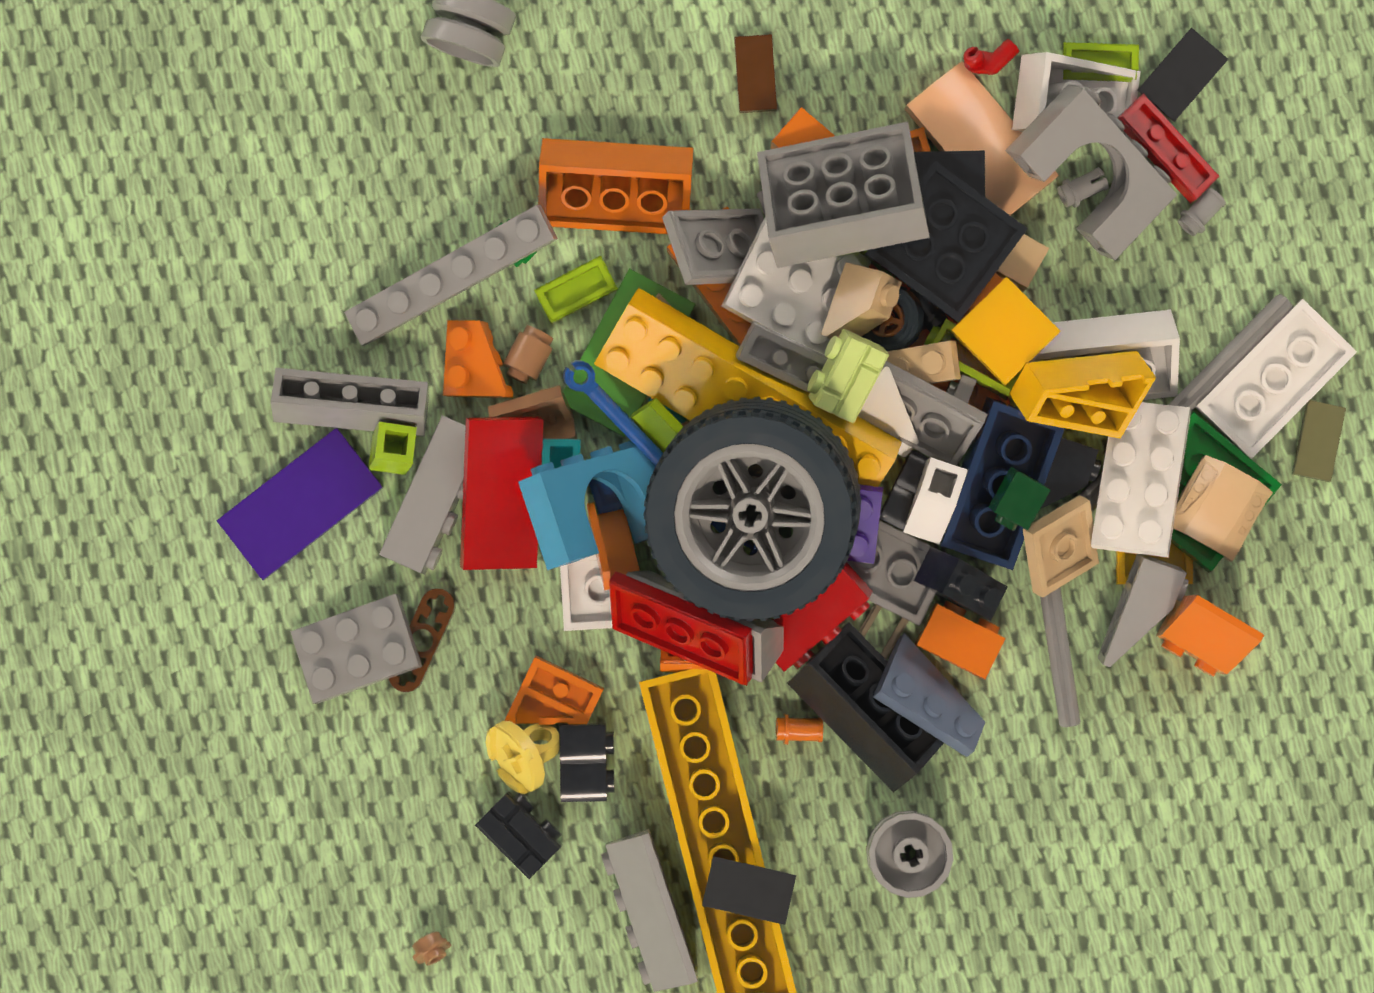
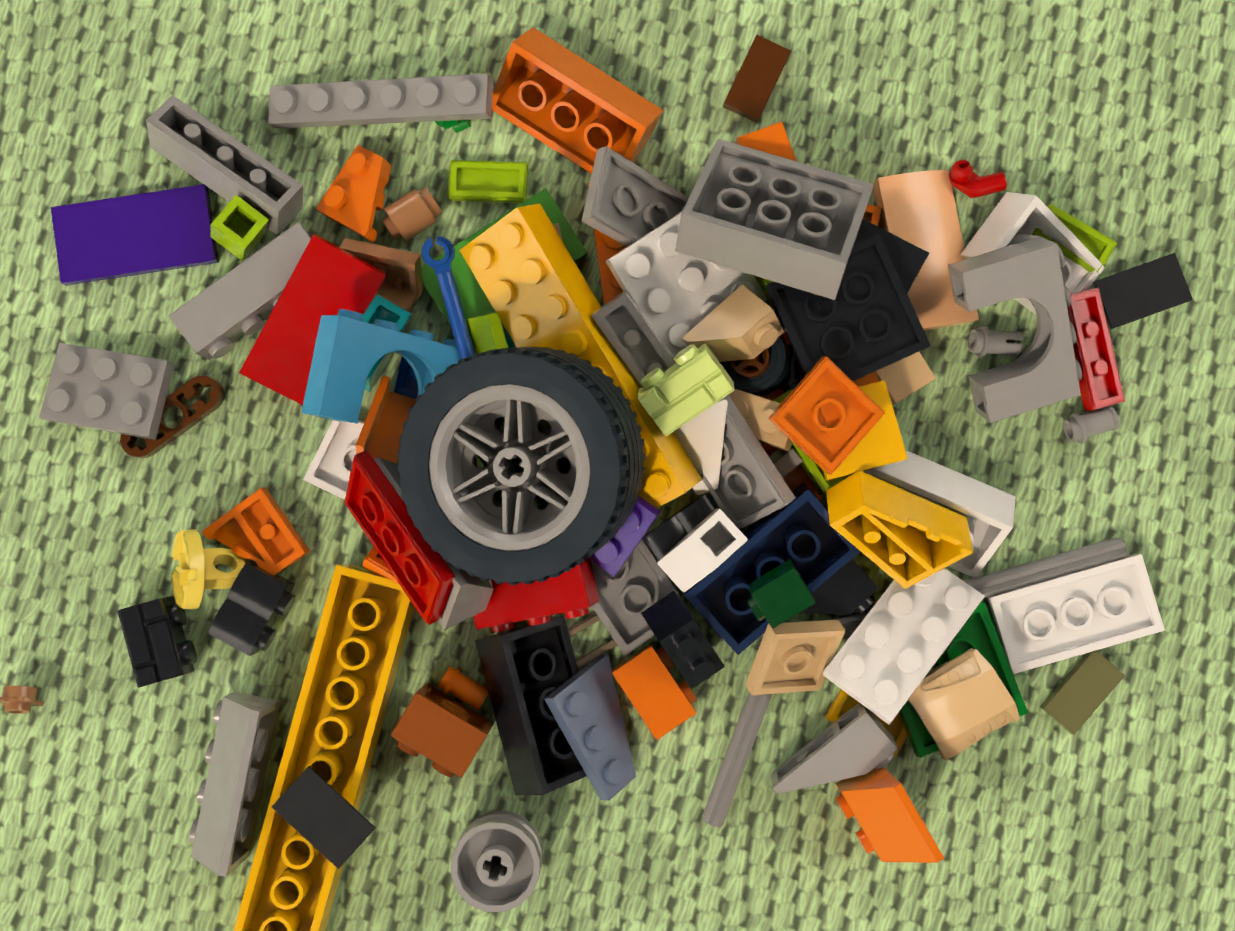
camera: 30 degrees right, 0 degrees up
(804, 770) = (441, 731): none -> dark orange brick
(975, 333) = (826, 415): none -> orange tile

